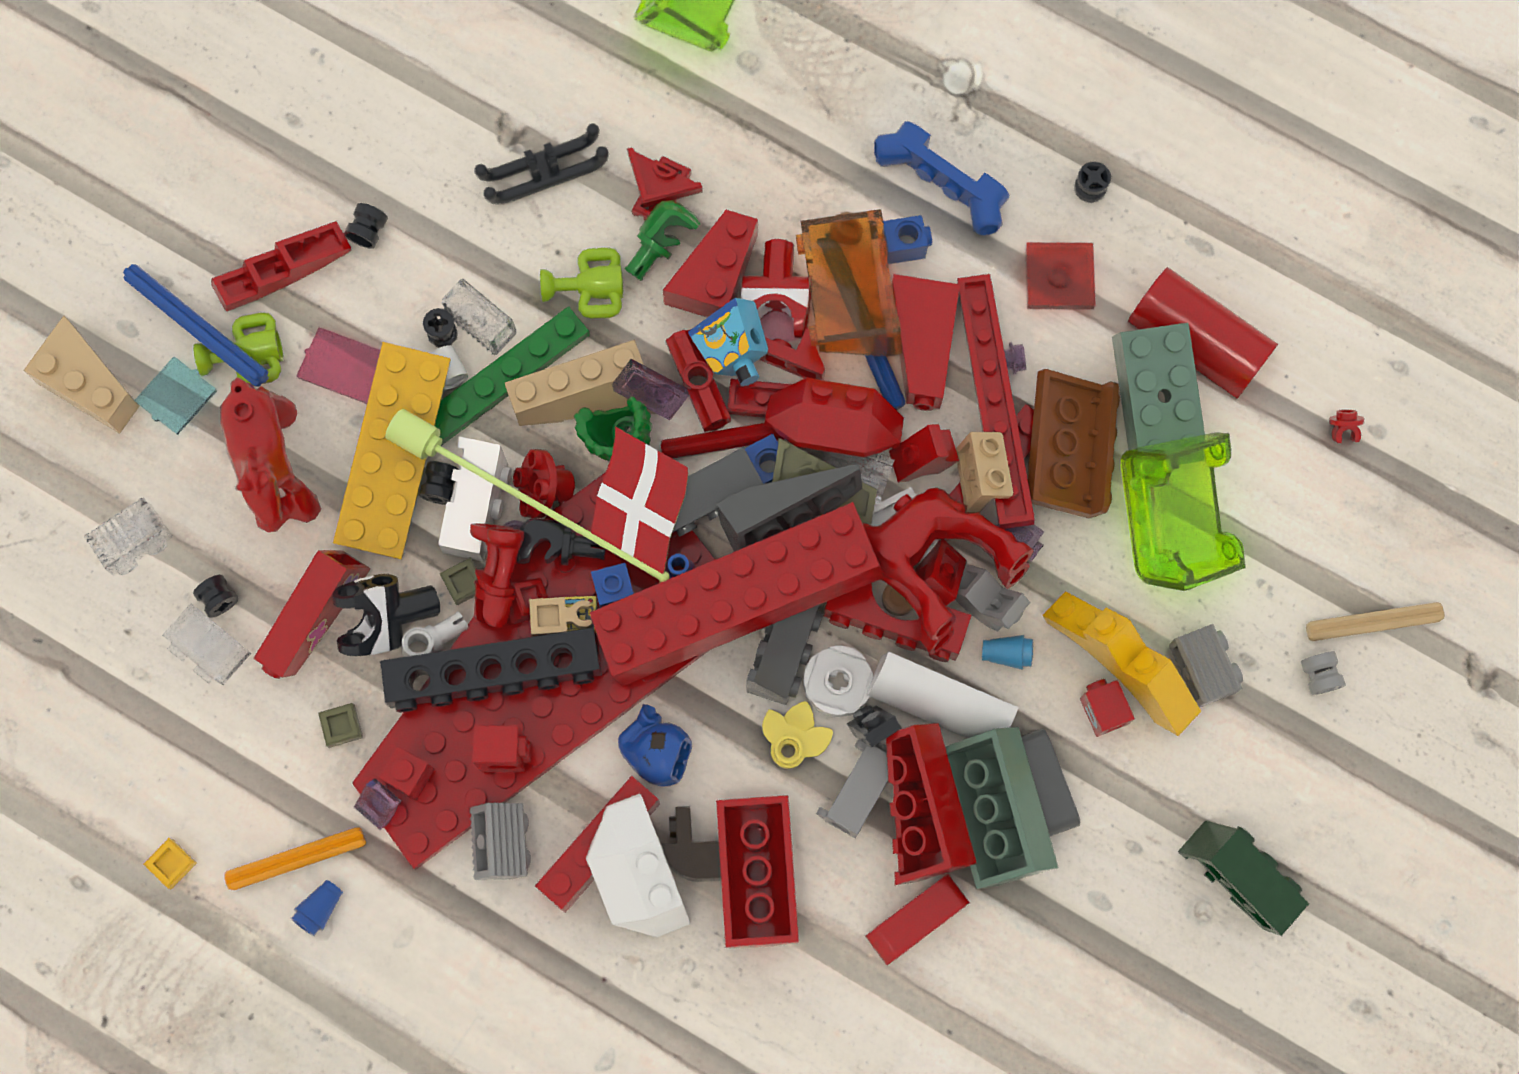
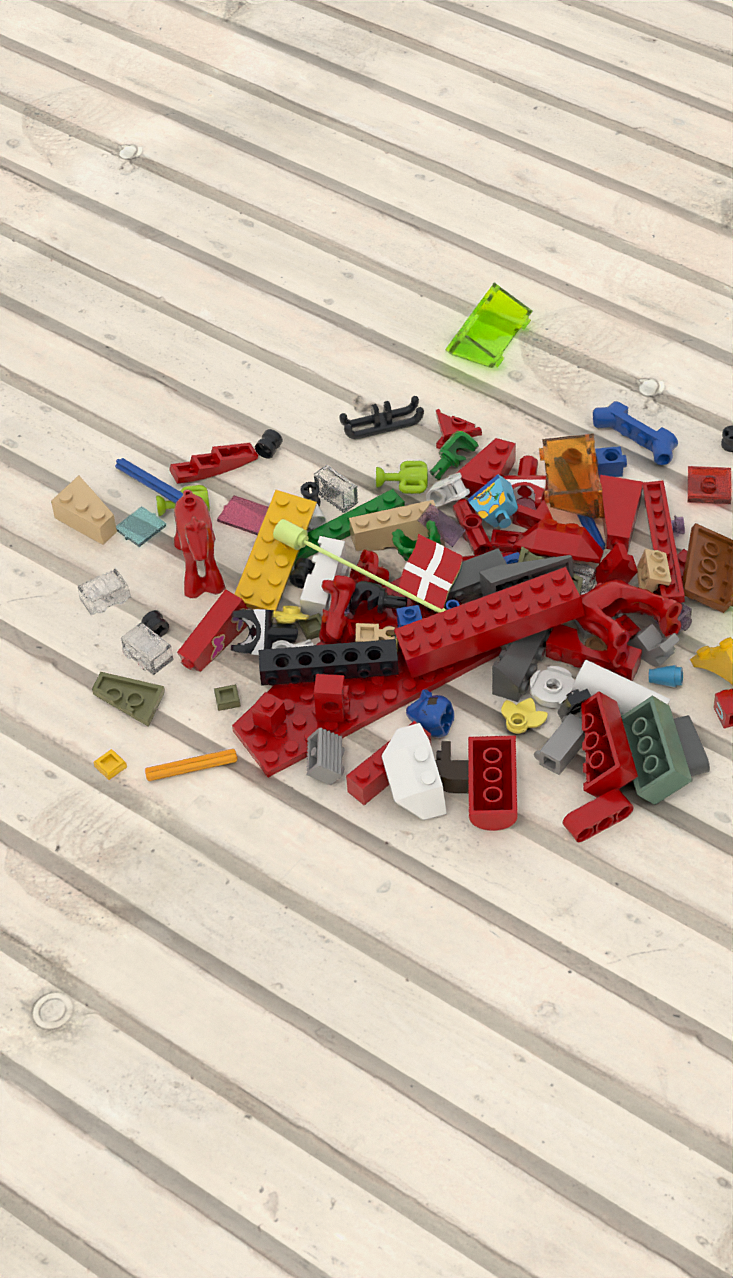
camera: 10 degrees right, 25 degrees down
(188, 734) = (129, 695): none -> olive wing
(317, 908) = (202, 790): blue cone -> none
(377, 804) = (248, 729): clear purple plate -> none
(423, 571) = (289, 615): none -> light yellow plate
(655, 315) = (450, 490): none -> white piece

